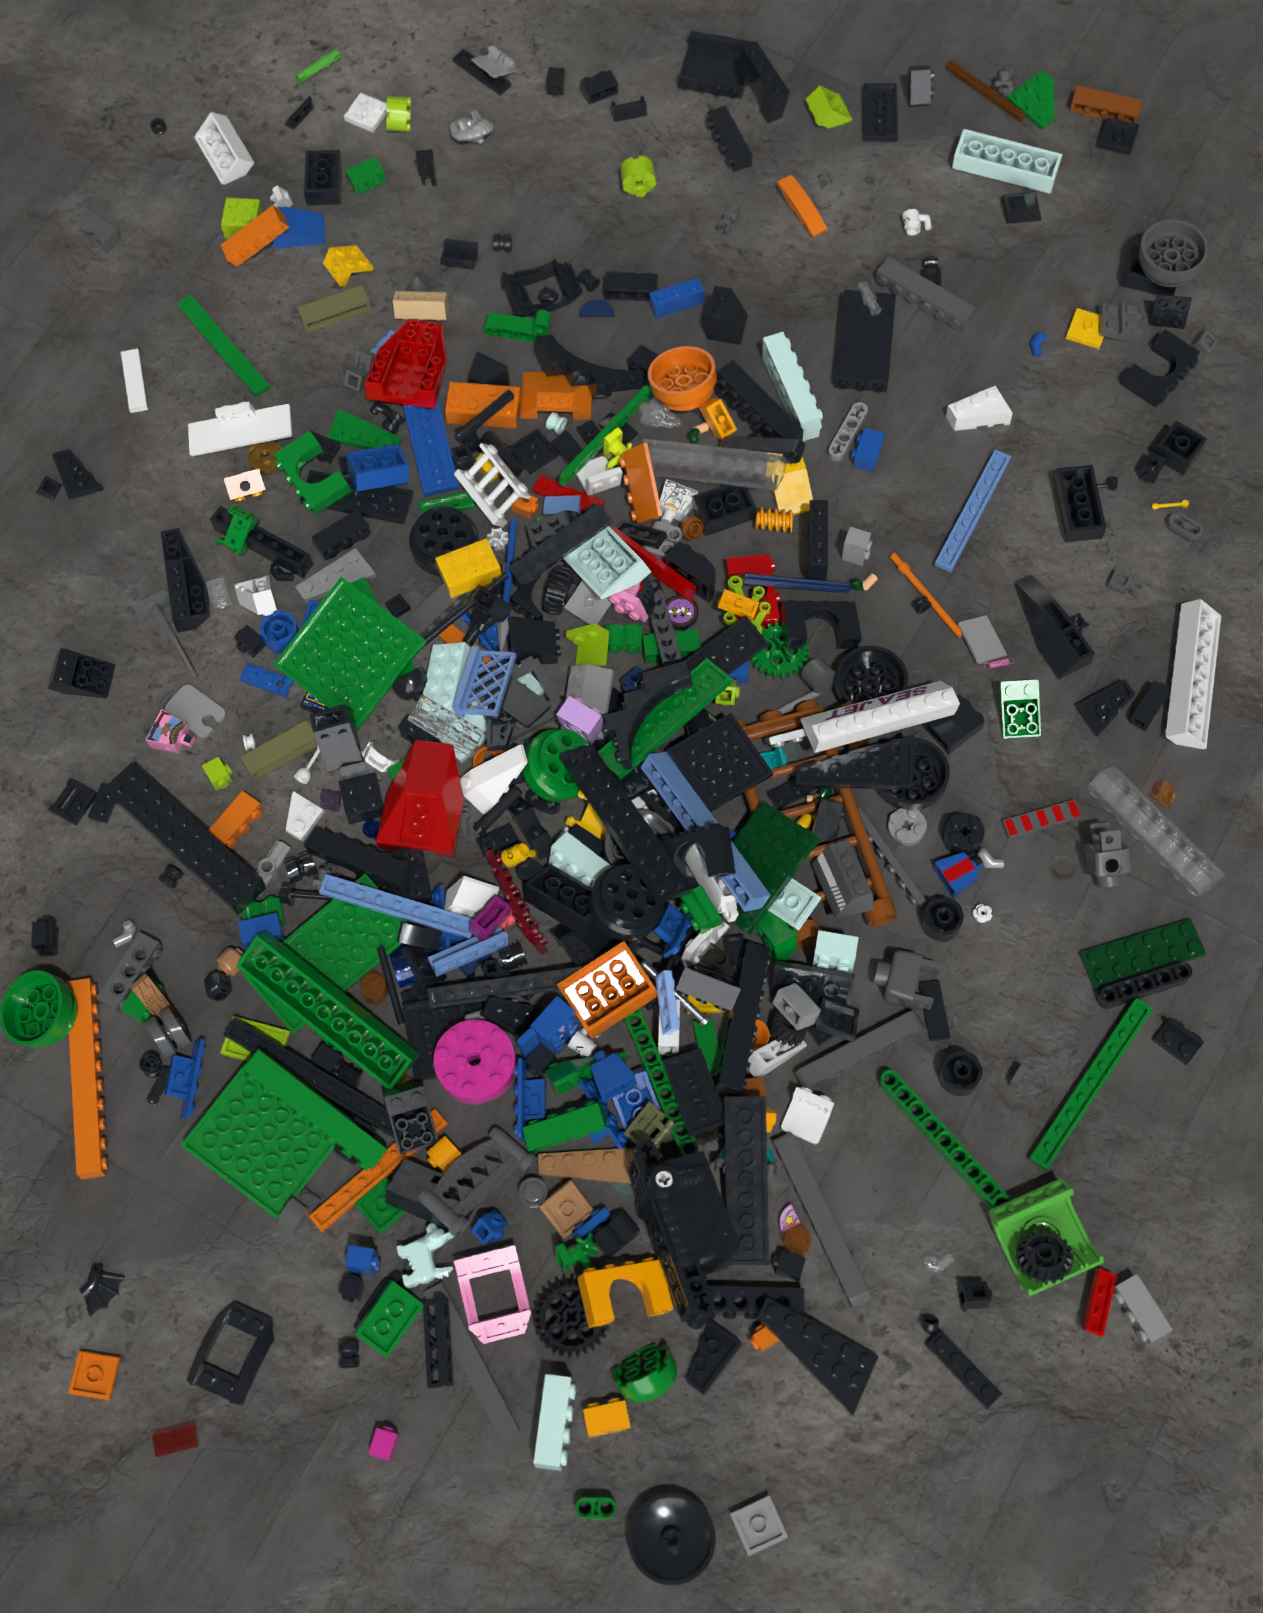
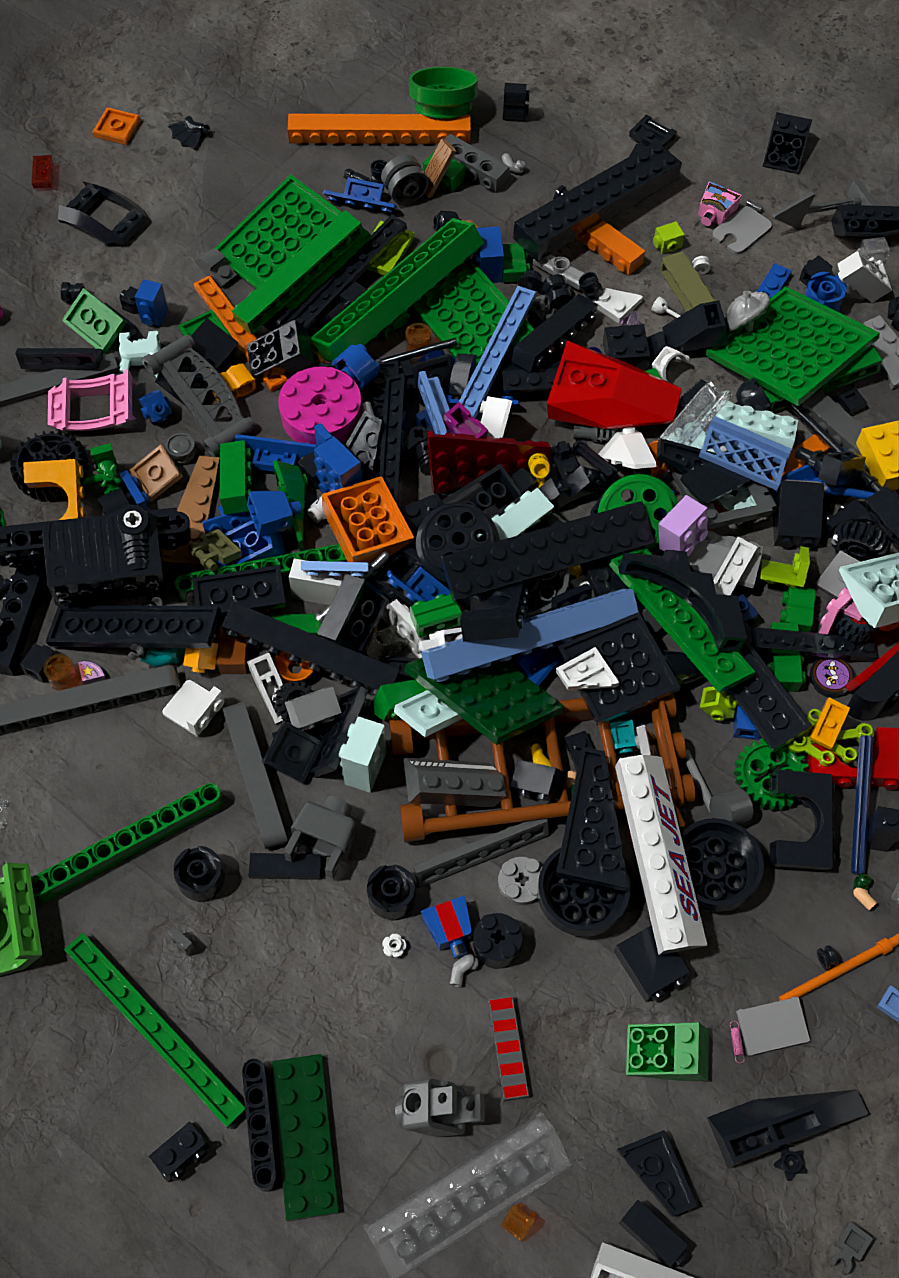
camera: 95 degrees right, 5 degrees down
(289, 838) = (591, 286): none -> black wheel
(313, 692) = (745, 310): none -> light grey piece
(427, 1033) = (358, 365): none -> blue brick
(603, 684) = (733, 566): none -> white plate
(733, 782) = (587, 672): none -> white wing

